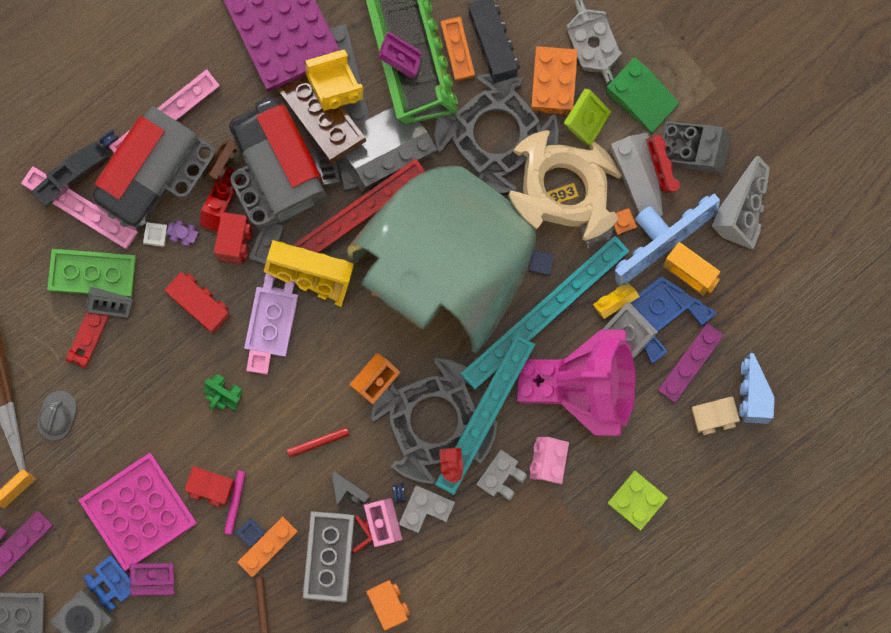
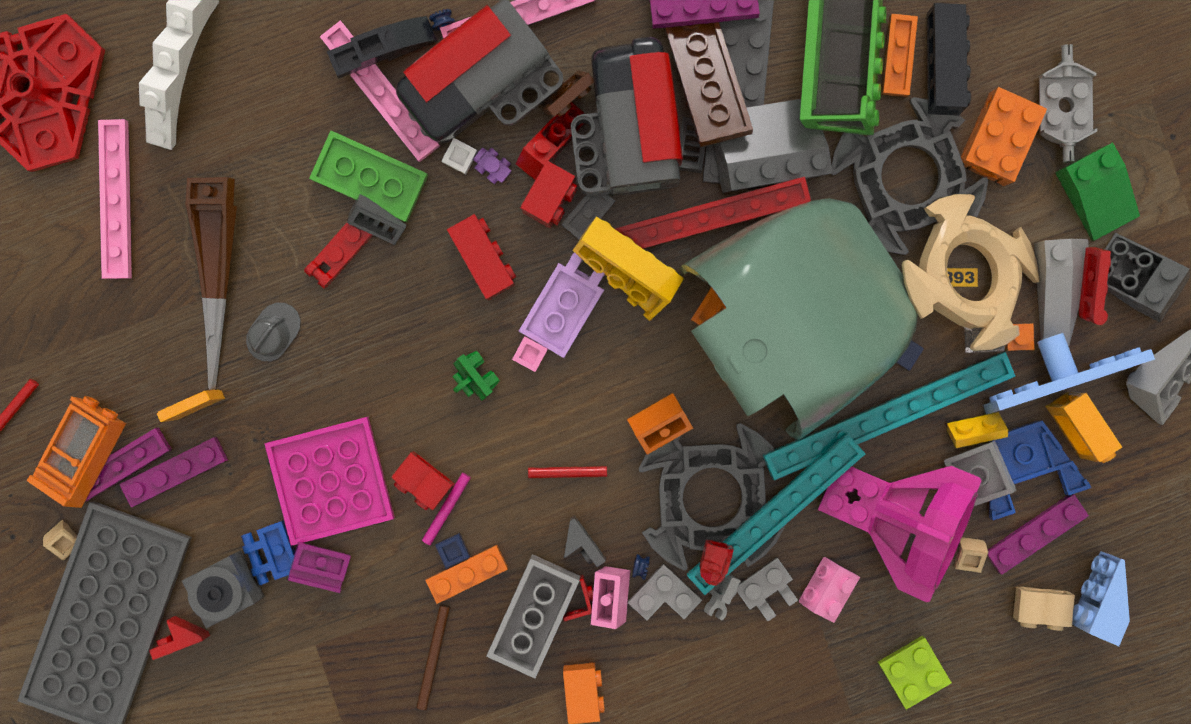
camera: 20 degrees right, 10 degrees up
(333, 80) = (737, 43): yellow panel -> none
(400, 55) = (831, 40): magenta plate -> none
(467, 490) = (722, 594): none -> light grey plate
(587, 117) = (1027, 196): lime plate -> none
(647, 396) = (971, 555): none -> tan slope

